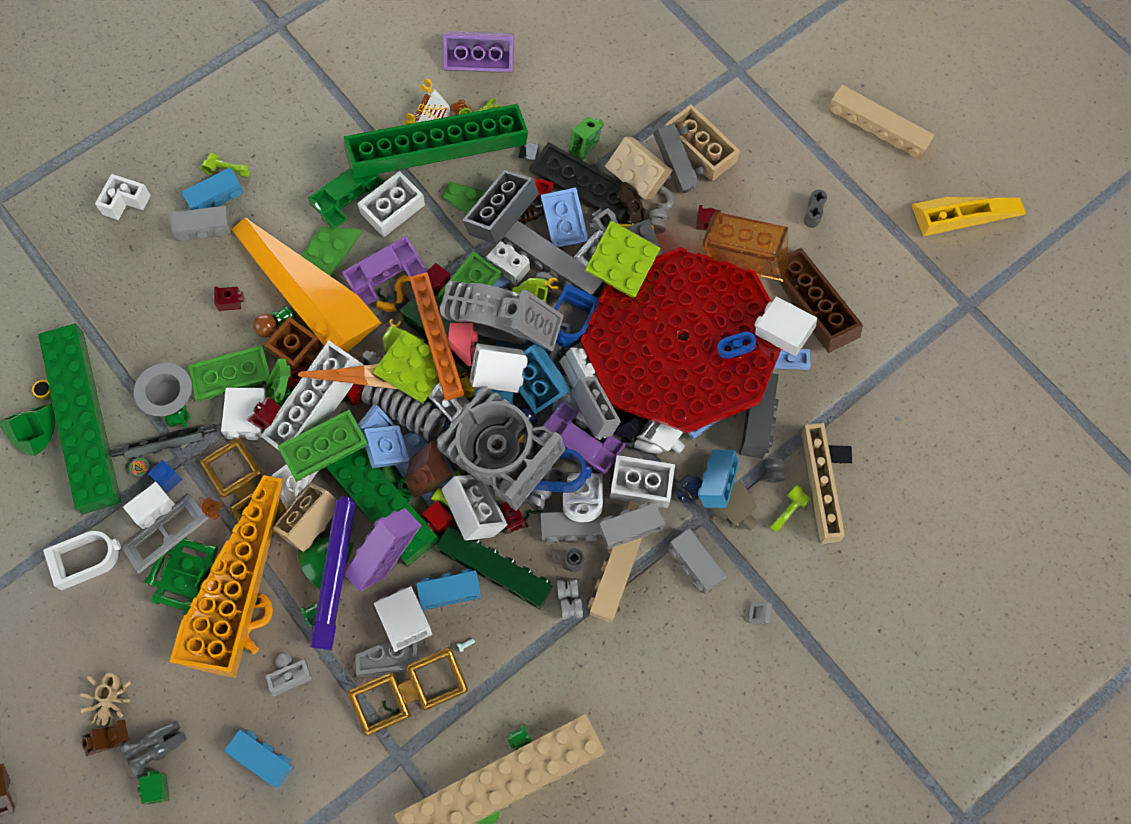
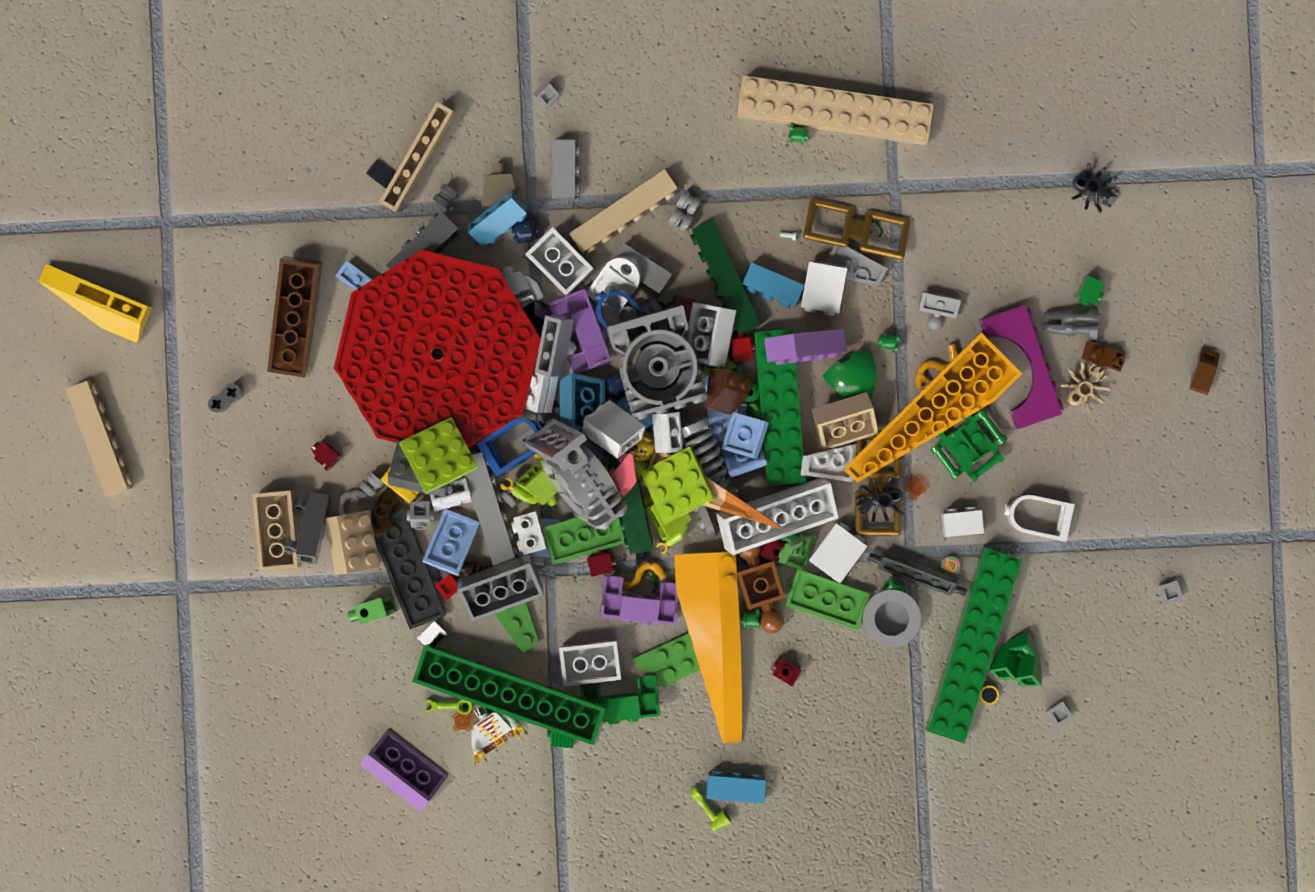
camera: 145 degrees left, 20 degrees up
(119, 193) = (817, 842): white brick -> none
(141, 657) = (1041, 400): none -> magenta arch
(165, 476) = (934, 540): blue brick -> none
(169, 540) = (963, 477): light grey door -> none
(201, 223) = (765, 762): light grey brick -> none
(231, 475) = (883, 499): none -> black animal
(259, 758) = (999, 257): dark azure brick -> none
(264, 413) = (823, 533): dark red brick -> none
(322, 445) = (796, 465): bright green plate -> none
(330, 591) = (889, 320): dark purple brick -> none
(436, 337) = (640, 500): orange tile -> none
(574, 564) = (659, 239): dark grey wheel -> none
(631, 525) = (597, 229): light grey brick -> none
(735, 344) = (404, 309): blue plate -> none
(751, 239) = (325, 391): clear orange windscreen -> none
(785, 326) = (352, 296): white brick -> none
(798, 498) = (443, 162): lime brick -> none

